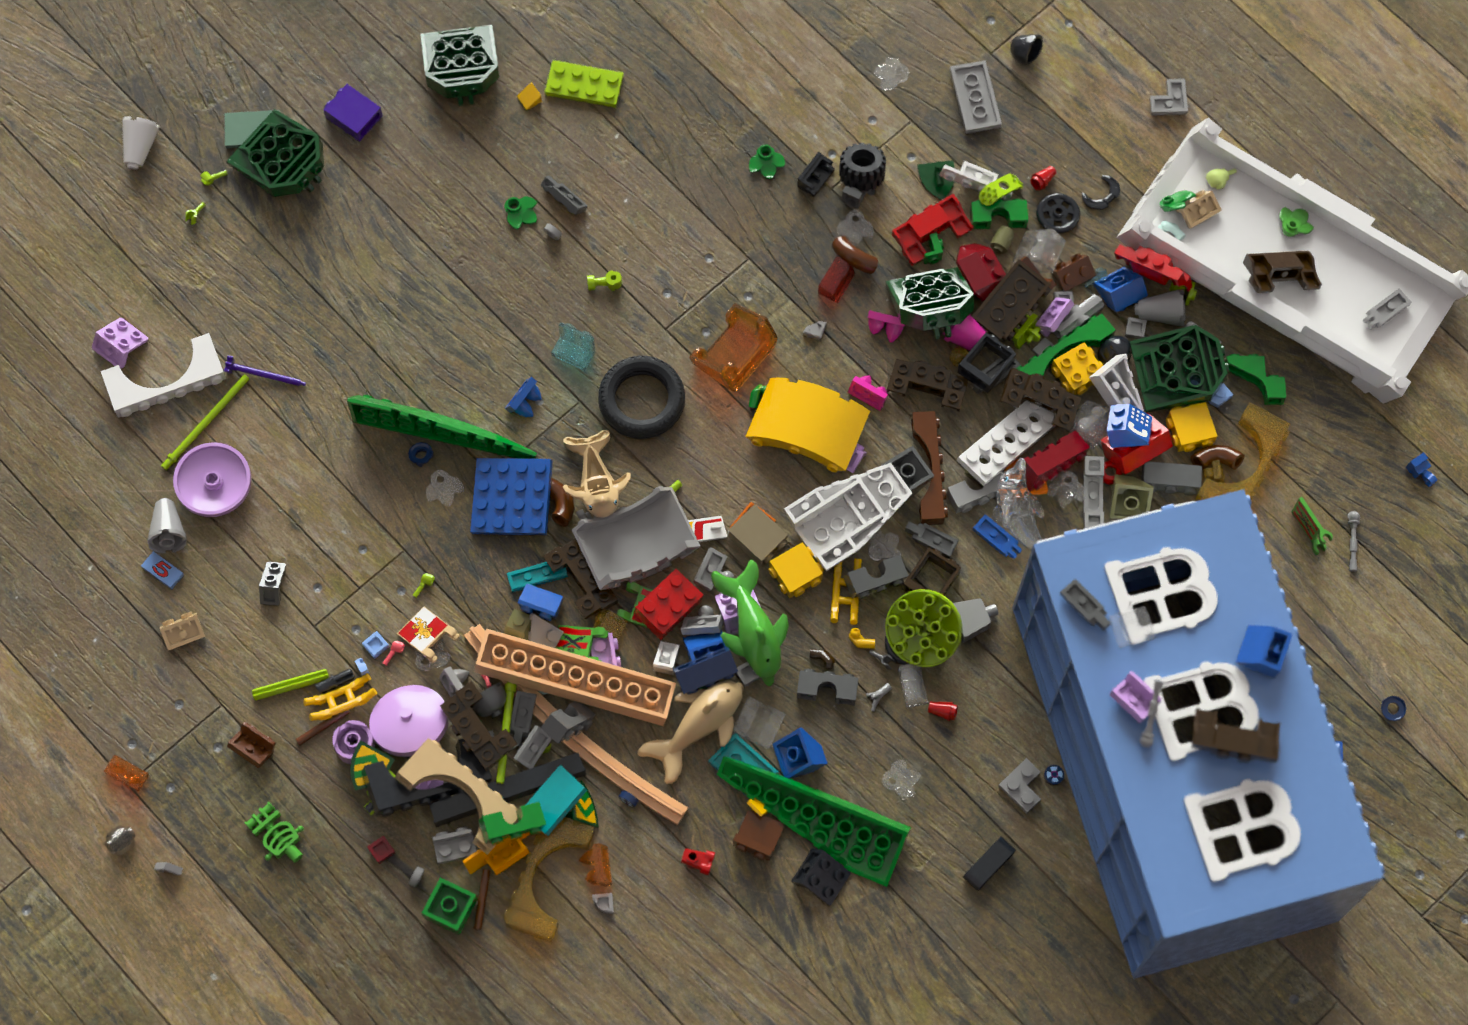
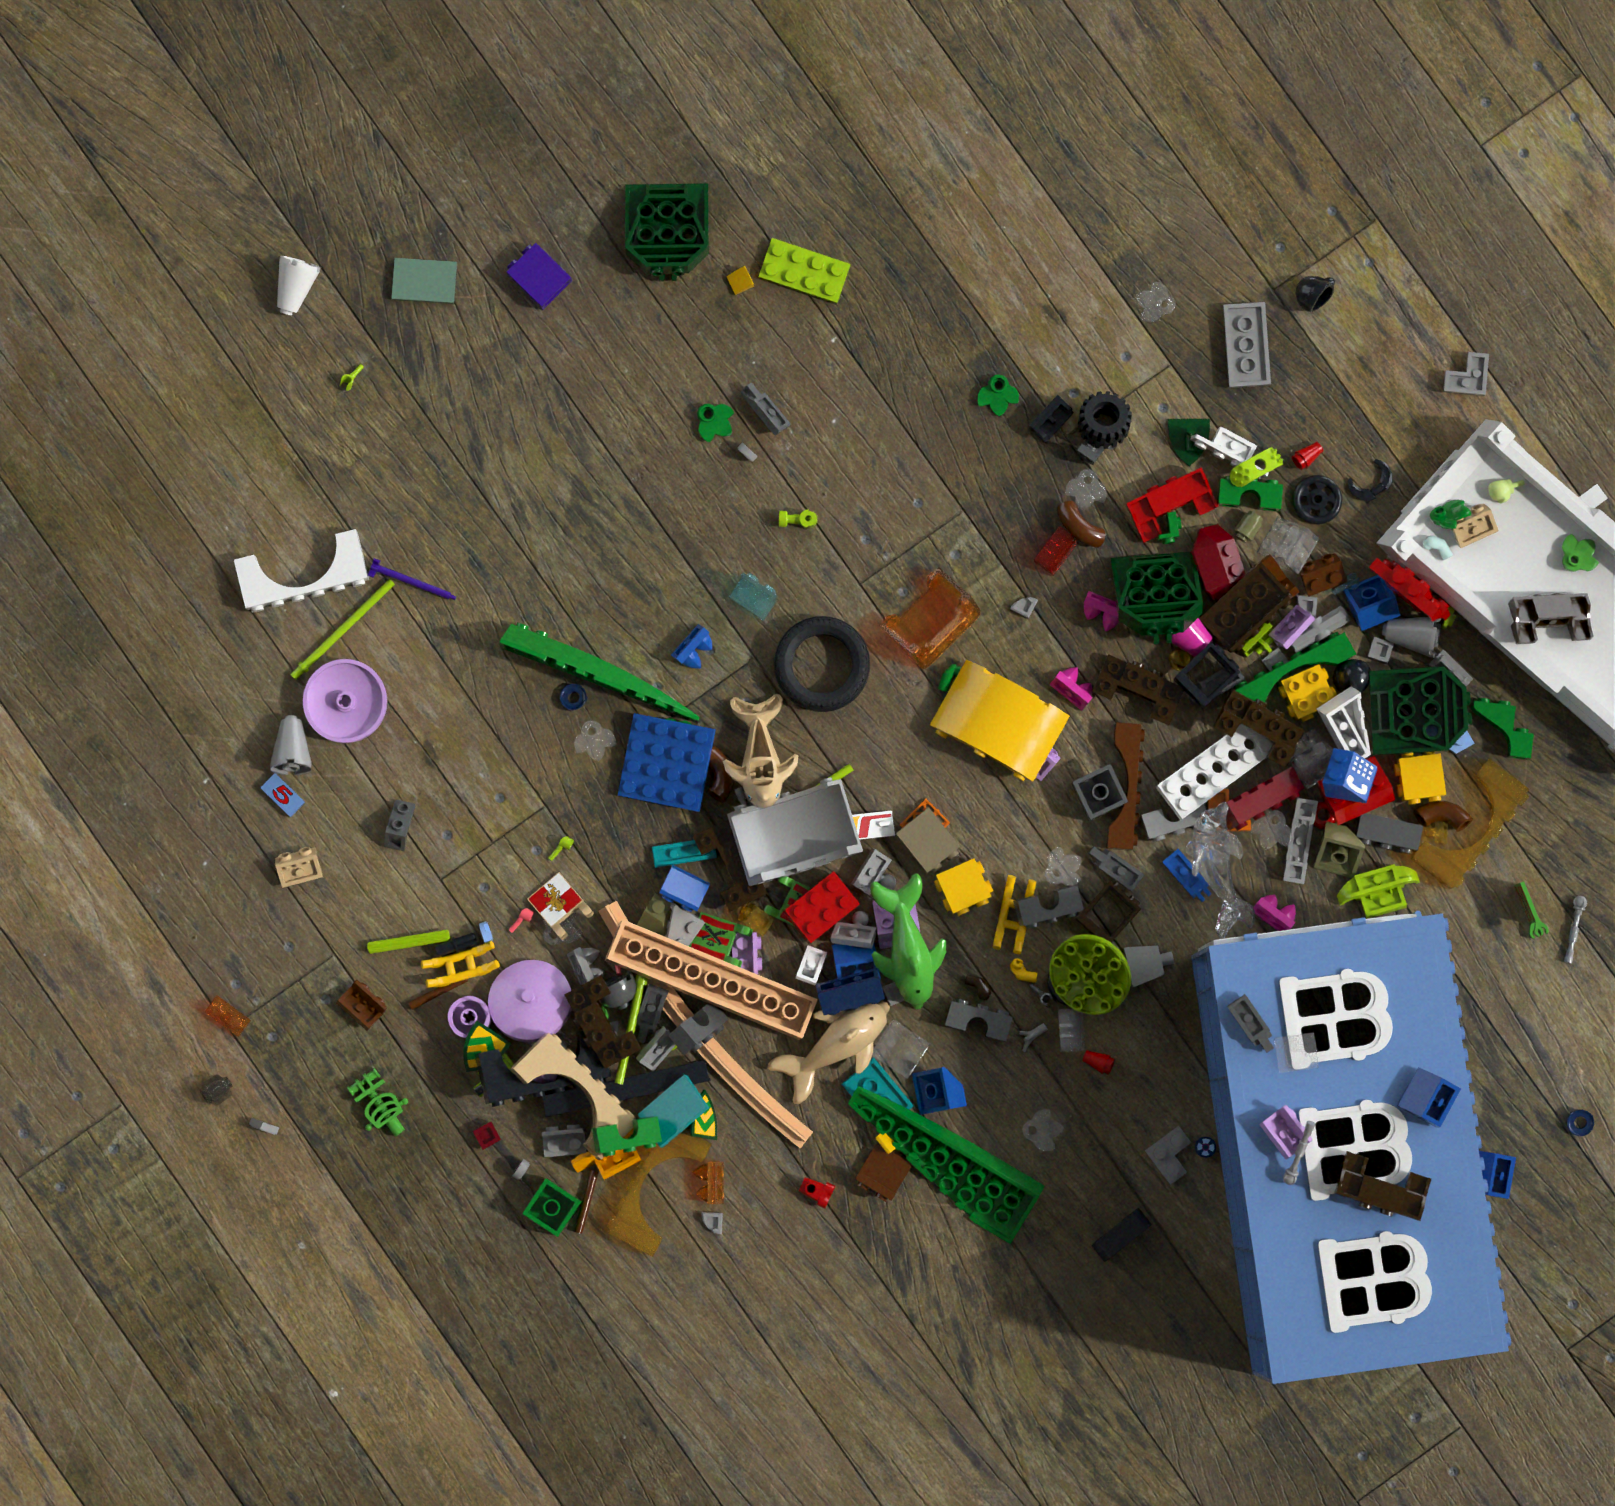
camera: 10 degrees right, 15 degrees up
(117, 341) = (255, 523): lavender bracket -> none
(208, 179) = (369, 337): lime hand -> none
(293, 174) = (479, 334): dark green hinge -> none
(375, 645) = (503, 908): light blue tile -> none
(628, 799) = (752, 1115): dark blue tile -> none
(821, 875) = (943, 1224): black bracket -> none
(847, 513) = (1028, 832): white wedge -> none

